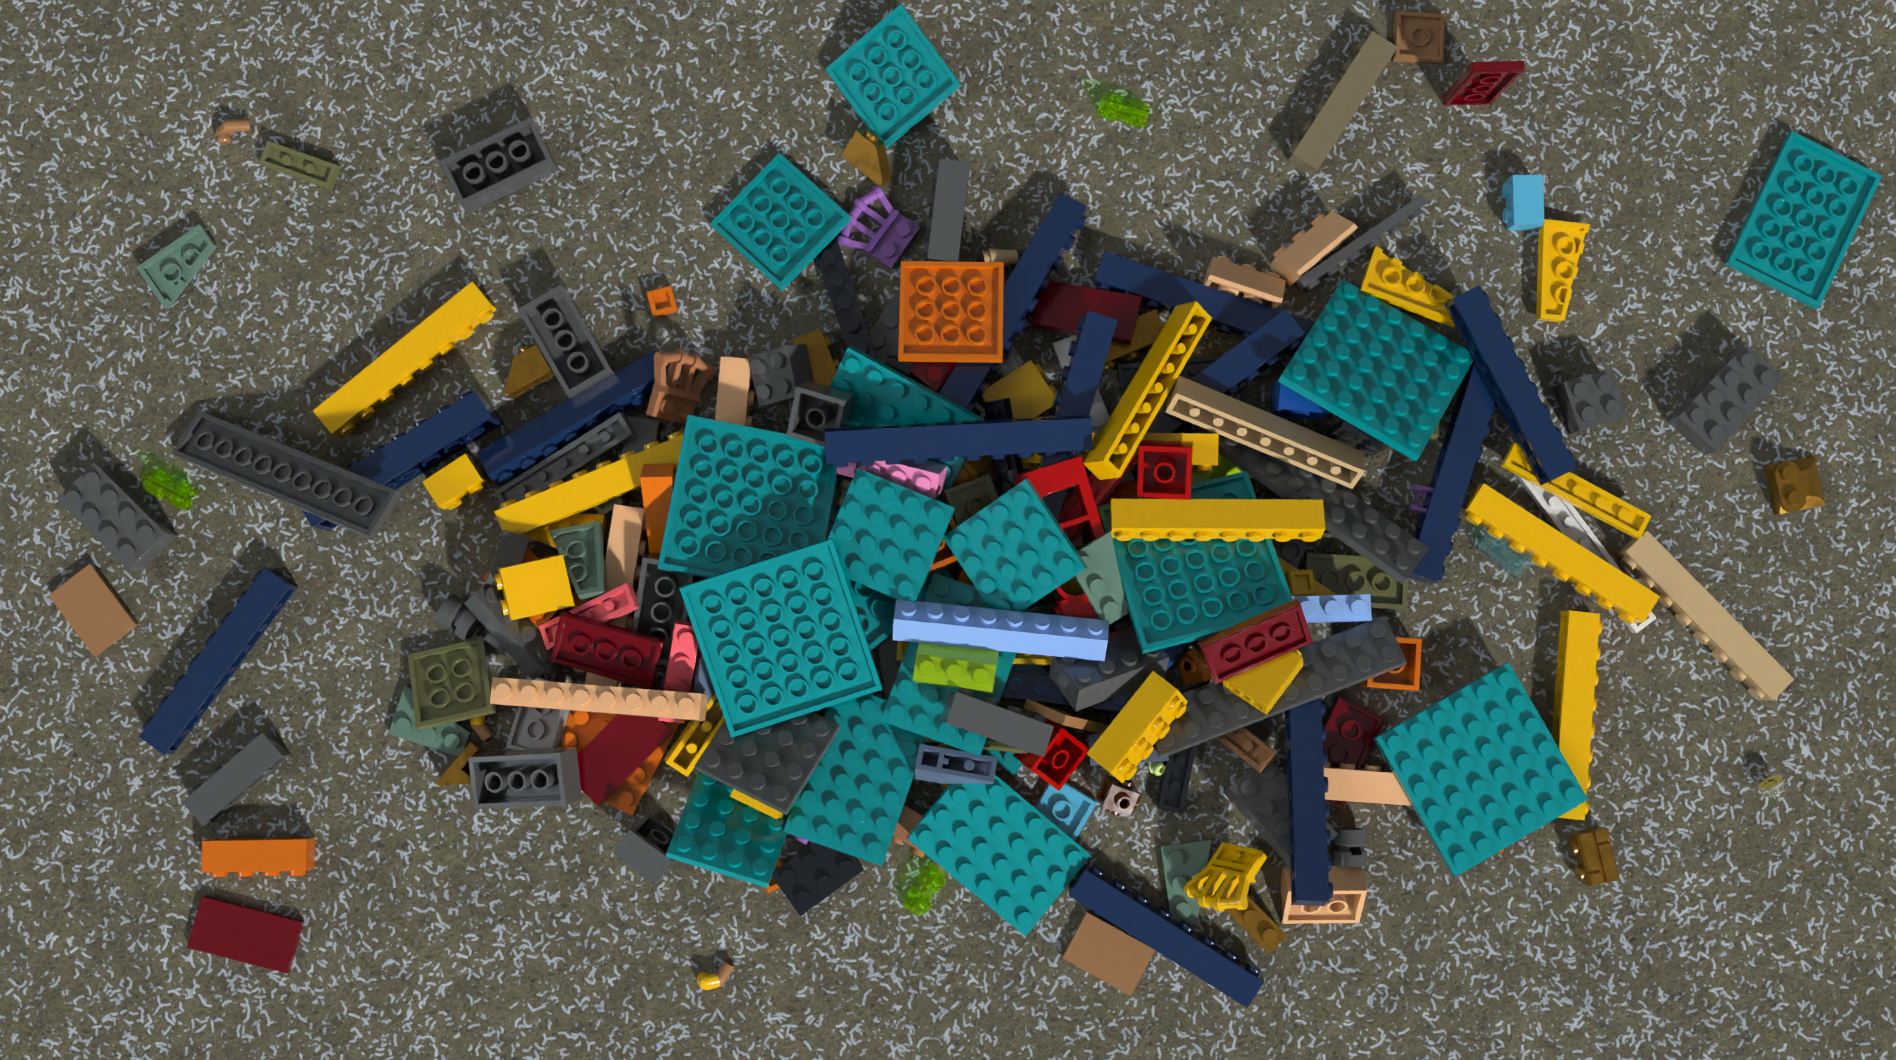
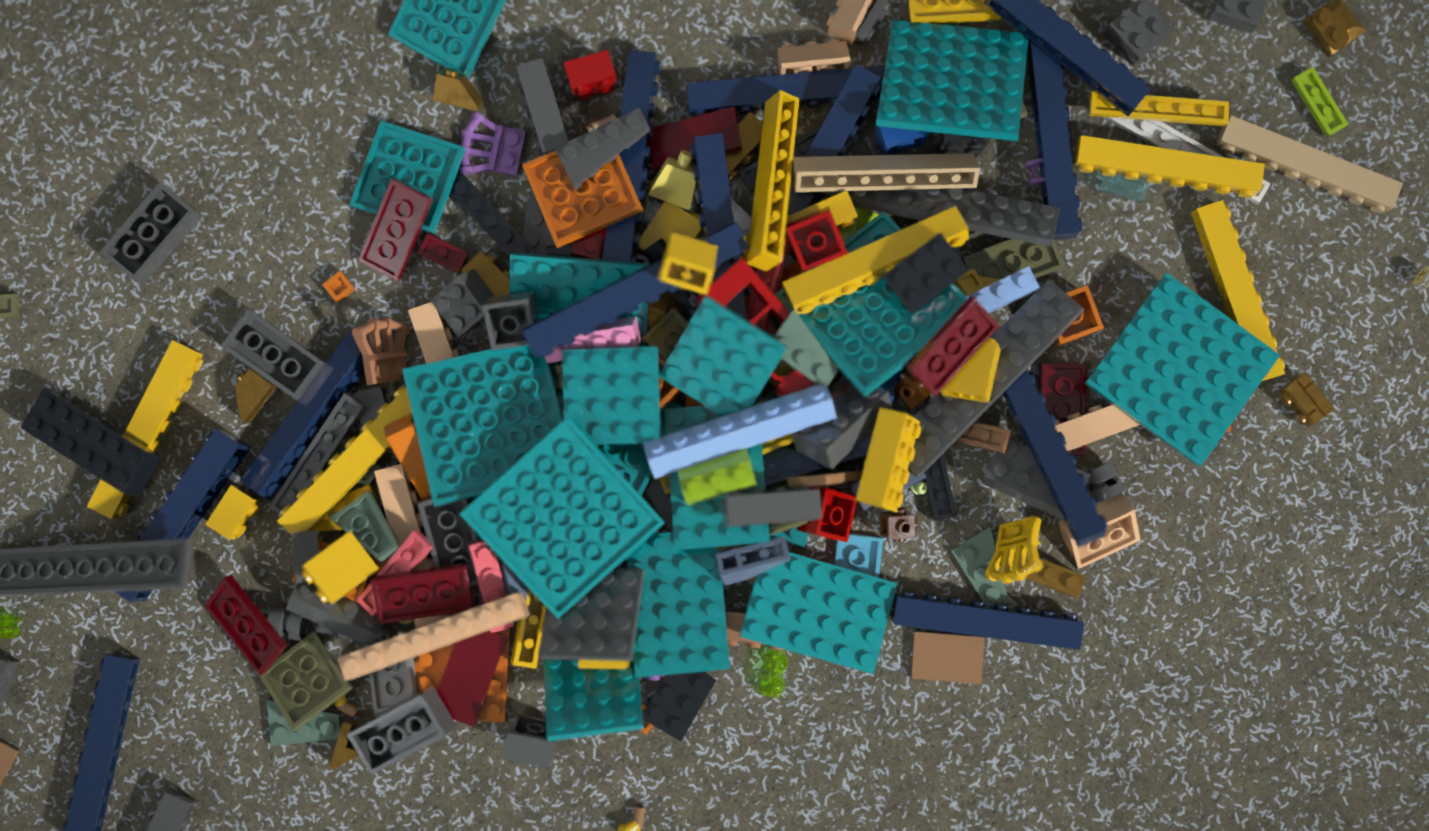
camera: 20 degrees left, 0 degrees up
(345, 349) = (91, 442): none -> black brick
(417, 601) = (245, 625): none -> dark red tile
(745, 269) = (395, 229): none -> tile
(782, 315) = (443, 253): none -> dark red plate
(982, 278) = (594, 149): none -> dark grey wing
(1011, 201) = (591, 75): none -> red brick
(1023, 437) = (688, 263): none -> yellow slope
(1048, 346) = (675, 181): none -> light yellow torso
(1260, 554) = (925, 273): none -> black plate
(1744, 557) = (1319, 102): none -> lime plate

